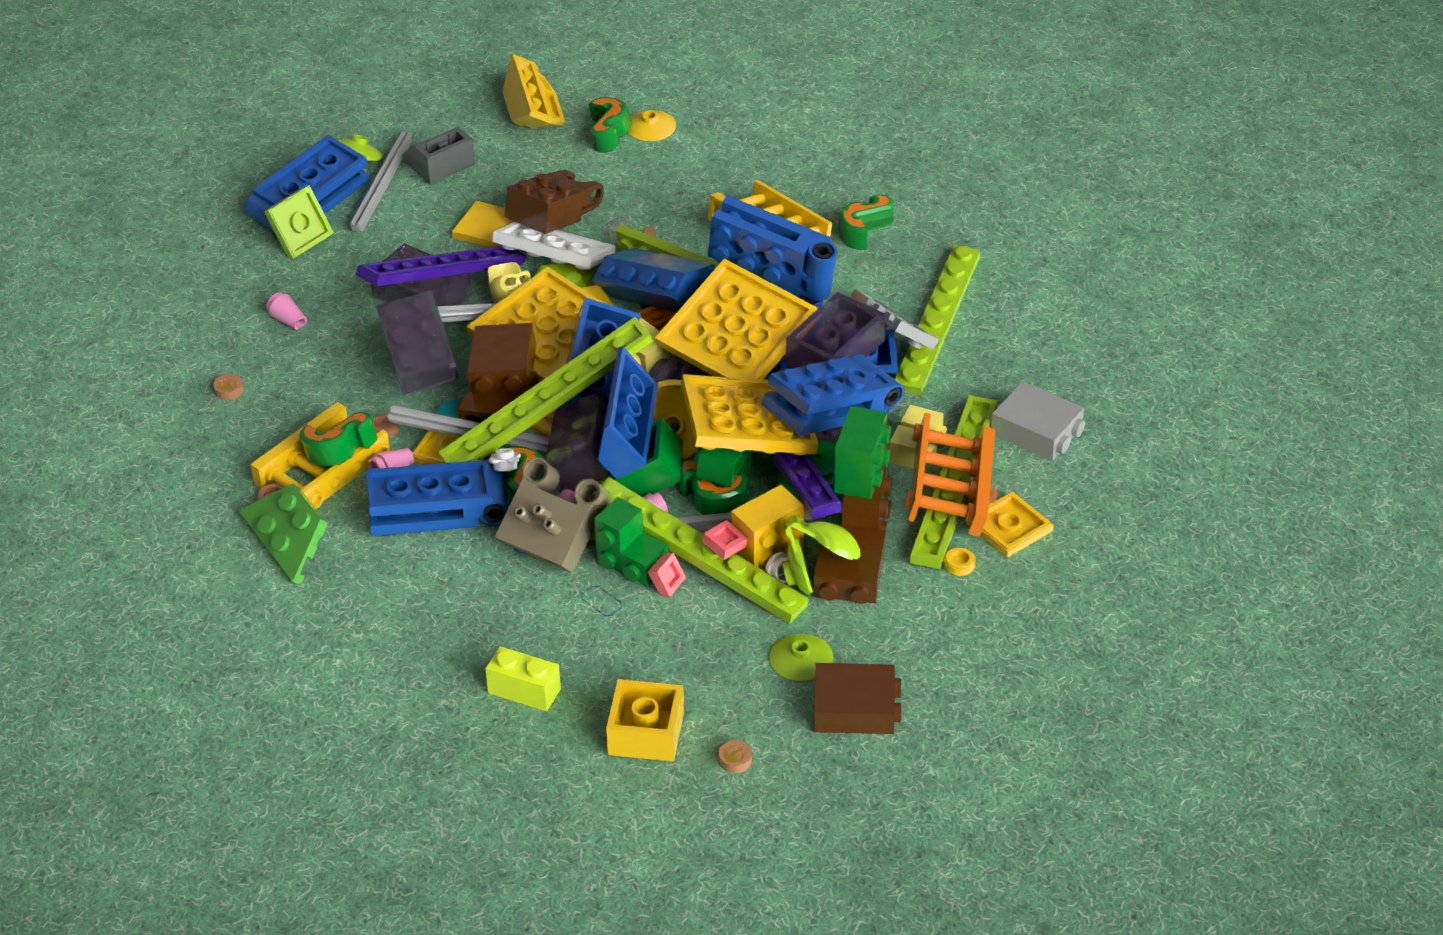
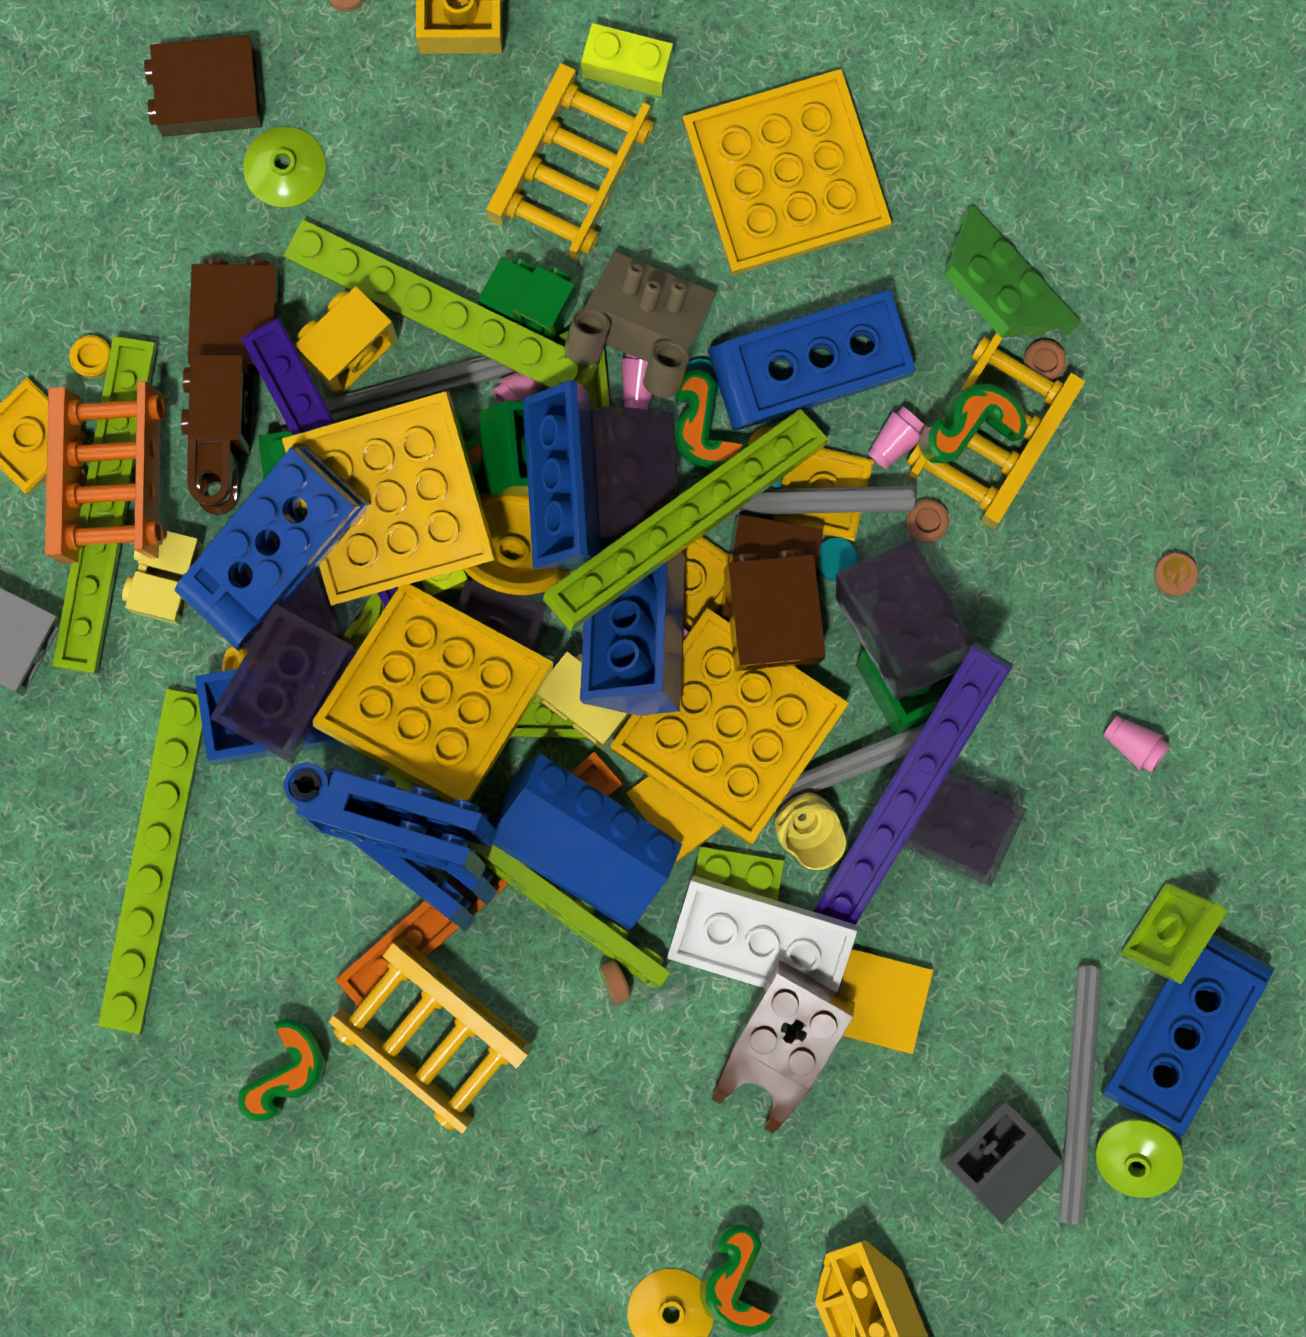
camera: 170 degrees right, 40 degrees up
(421, 610) = (786, 172): none -> yellow plate
(504, 459) = (720, 412): white plate -> none
(597, 648) = (547, 130): none -> yellow fence
(666, 574) = (475, 268): coral plate -> none
(725, 539) = (398, 296): coral plate -> none
(775, 568) = (322, 299): white plate -> none
(828, 534) = (254, 297): lime animal -> none
(861, 452) = (214, 402): green brick -> none
(902, 327) = (210, 797): light grey wing -> none

